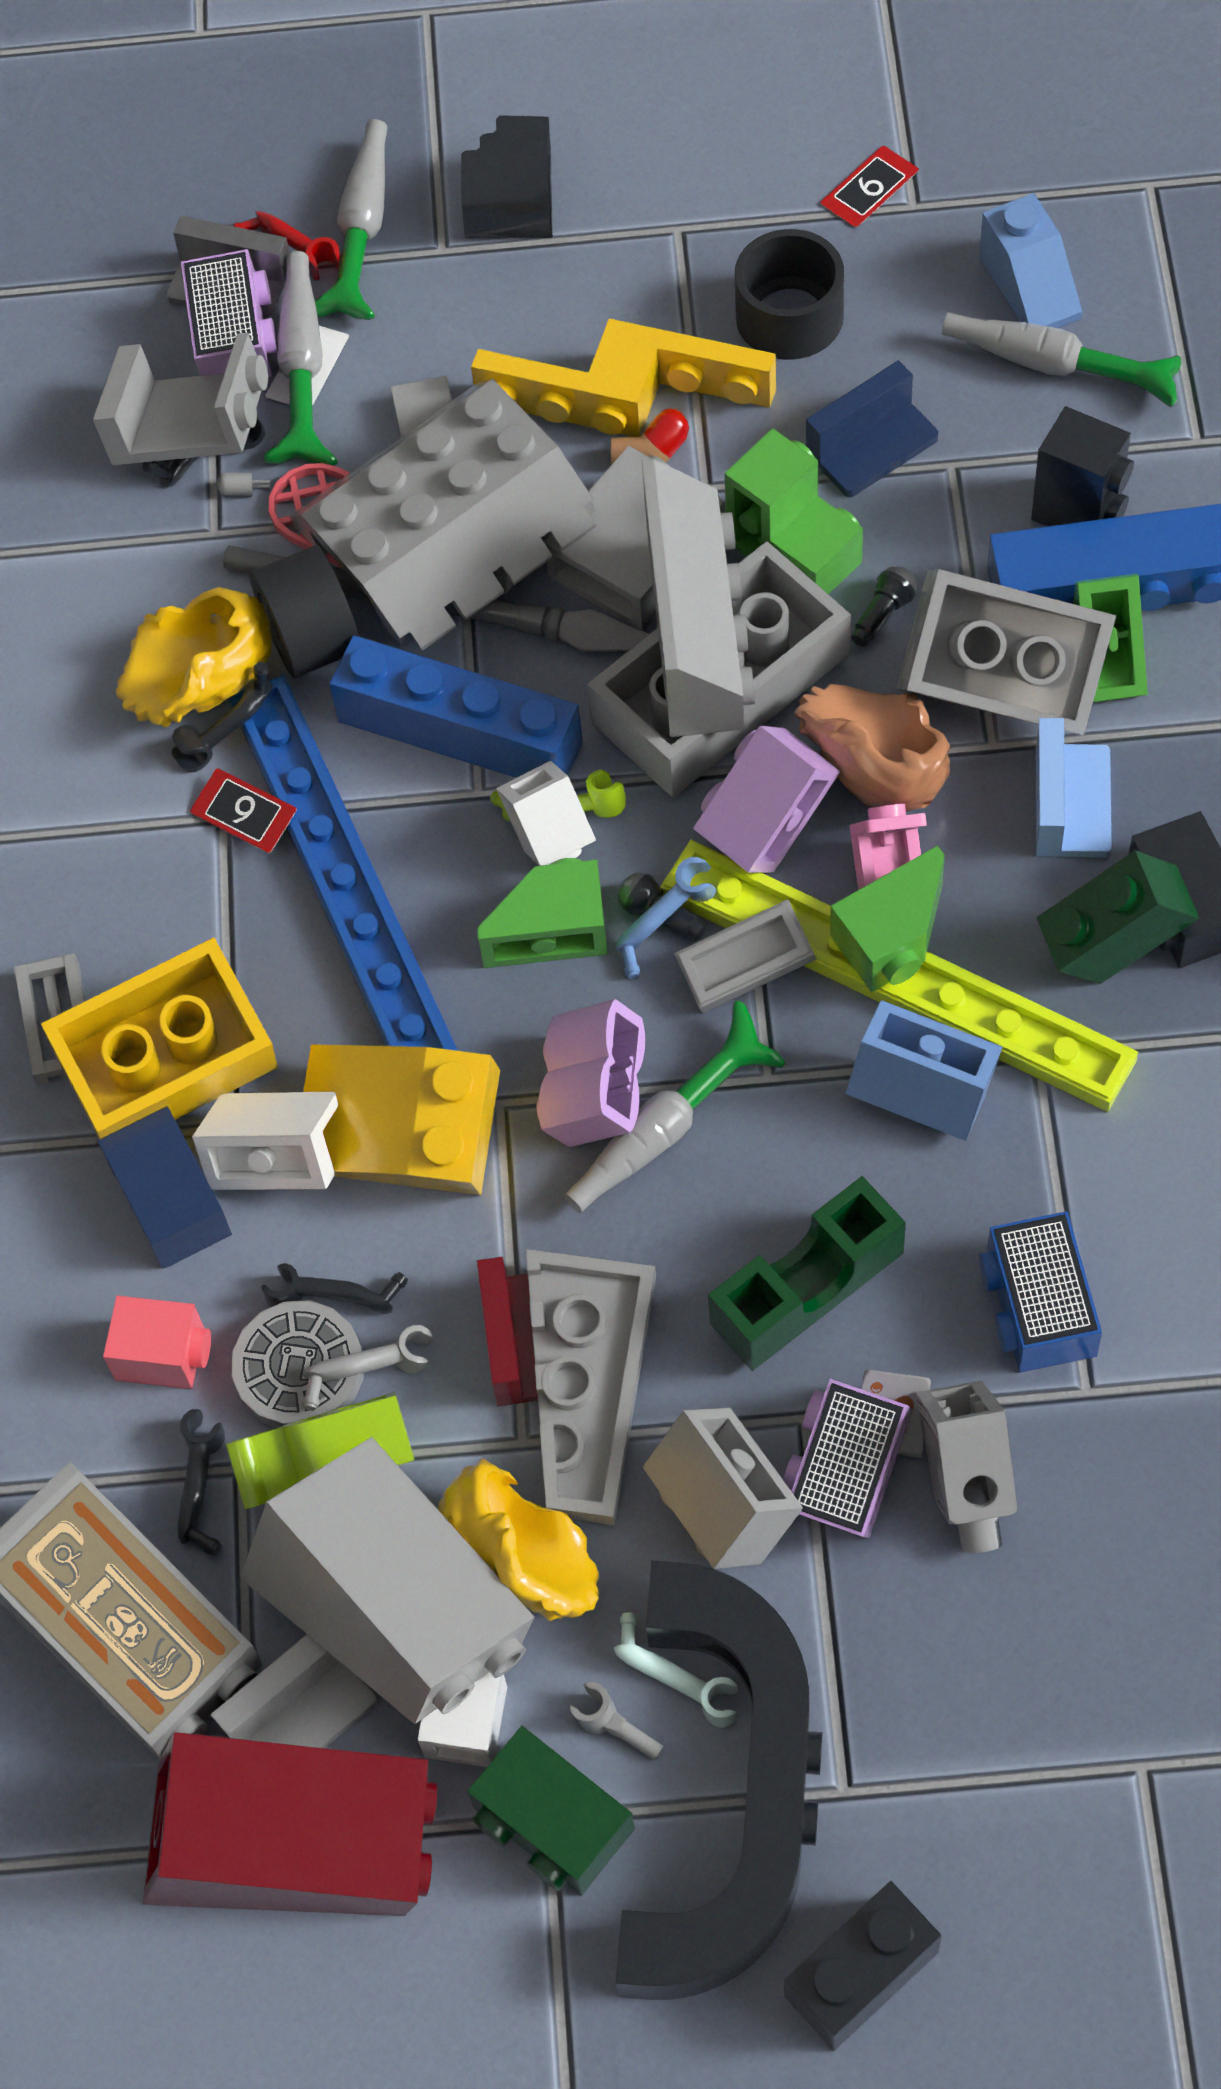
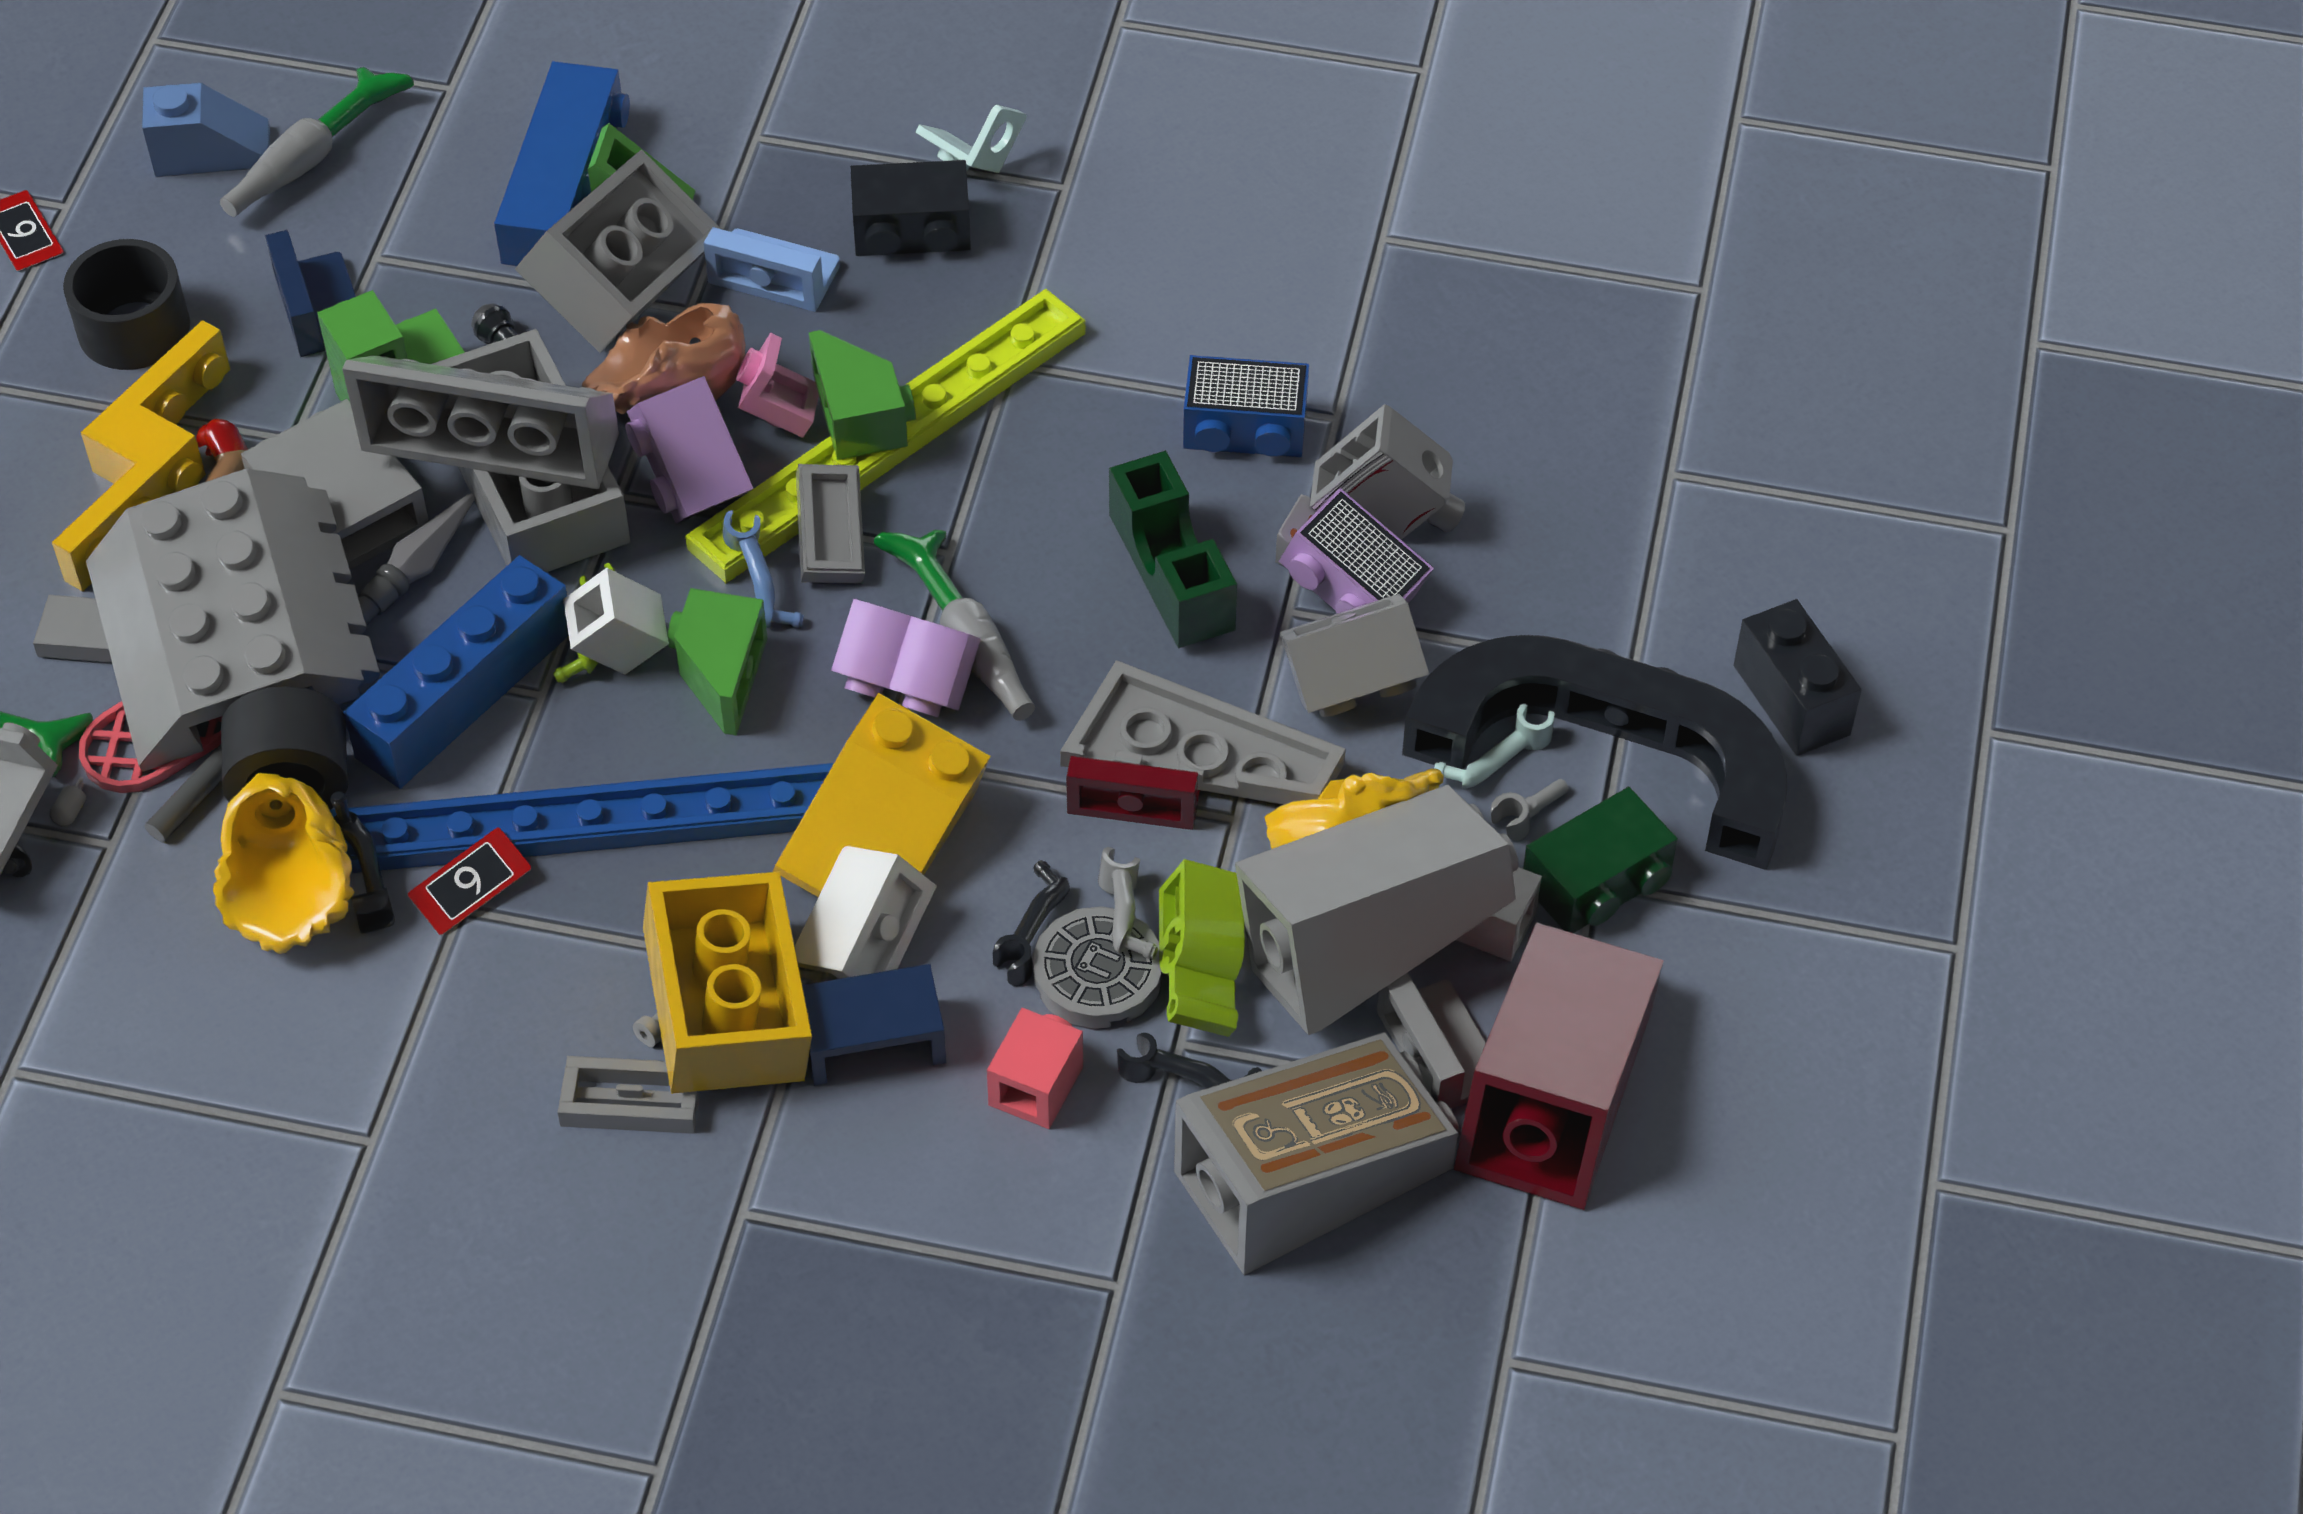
camera: 80 degrees left, 10 degrees down
(641, 891) = (739, 580): black piece -> none
(923, 1070) = (1011, 419): medium blue brick -> none
(1081, 471) = (468, 145): black brick -> none
(1117, 917) = (930, 243): dark green brick -> none

